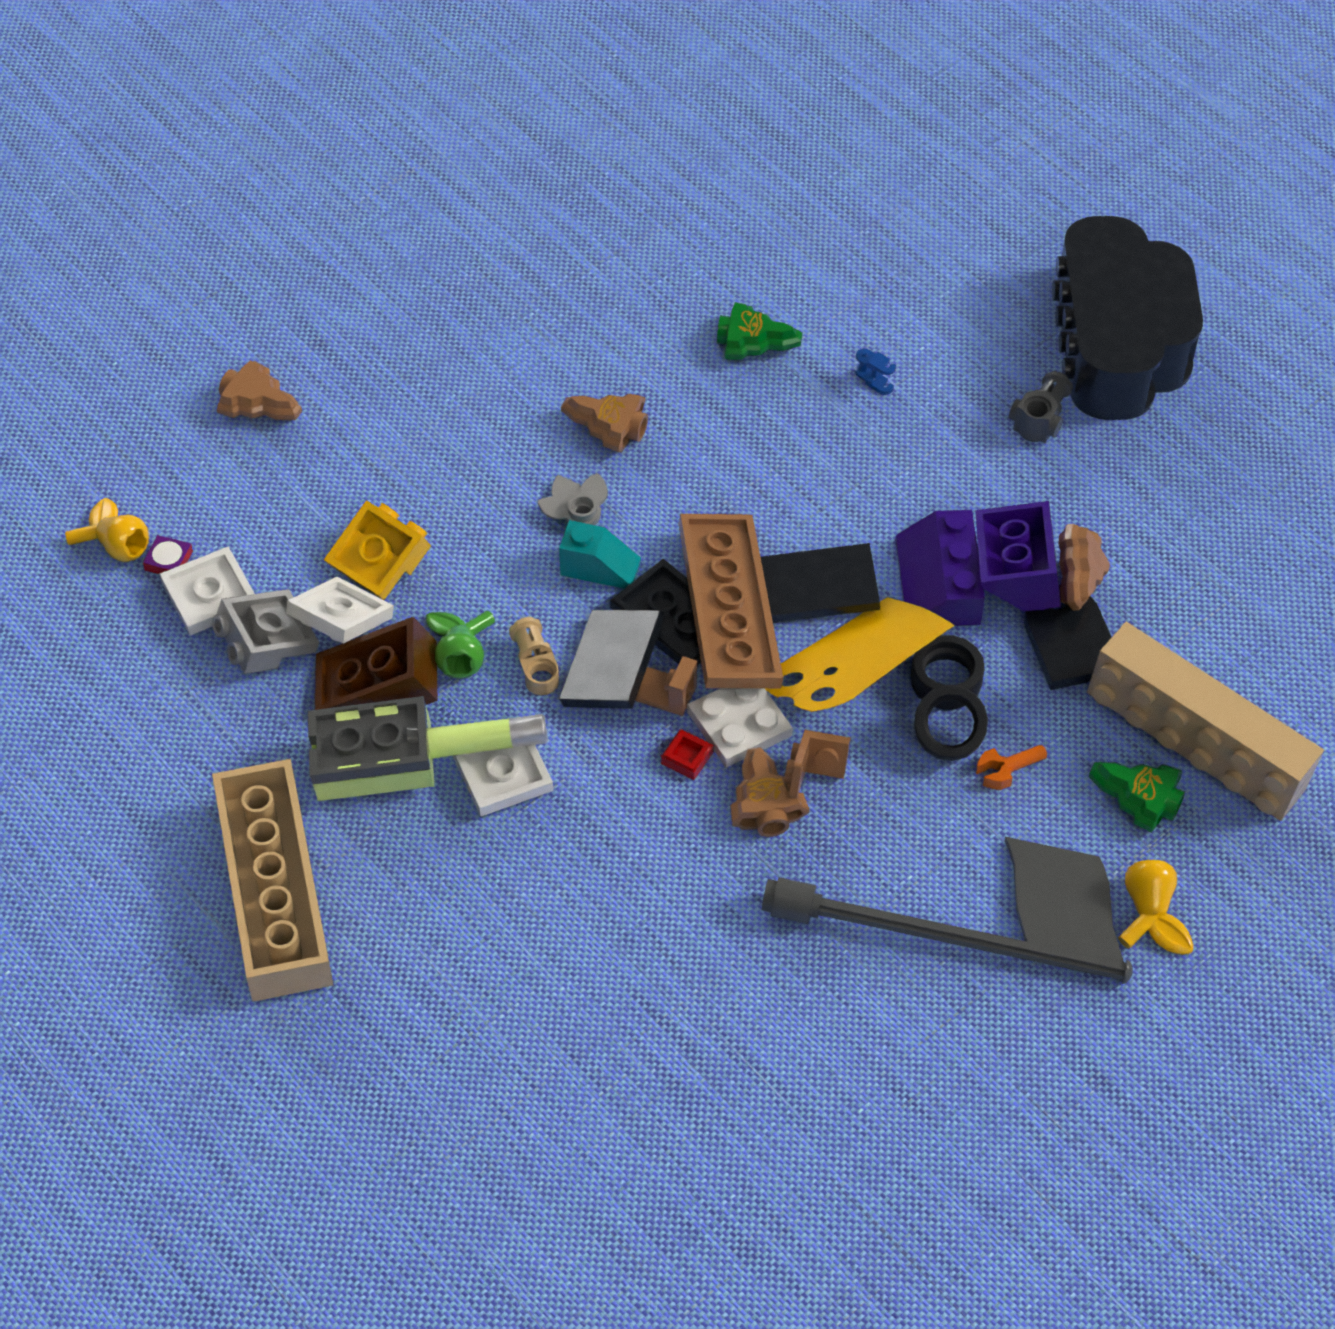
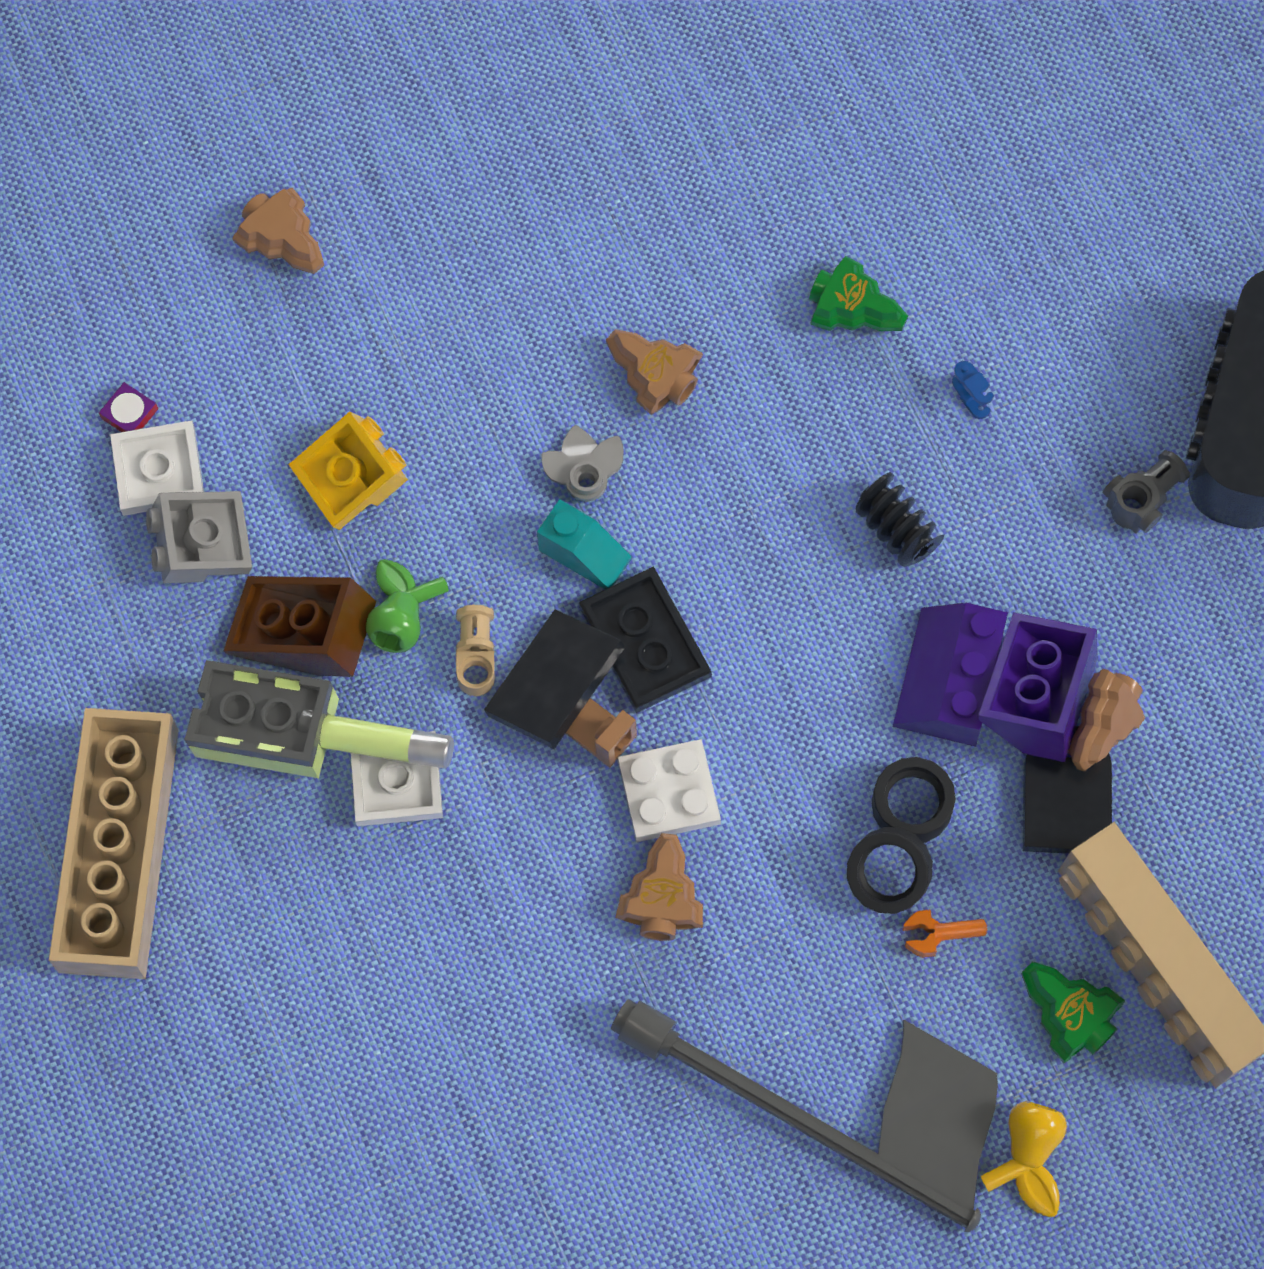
camera: 20 degrees right, 15 degrees up
(122, 536) = (84, 375): yellow piece -> none
(339, 609) = (283, 536): white plate -> none
(687, 754) = (599, 815): red tile -> none
(730, 601) = (703, 646): medium nougat plate -> none
(816, 754) = (731, 860): medium nougat bracket -> none
(821, 582) = (814, 646): black tile -> none
(851, 476) = (895, 521): none -> black piece
(860, 652) = (828, 753): yellow piece -> none

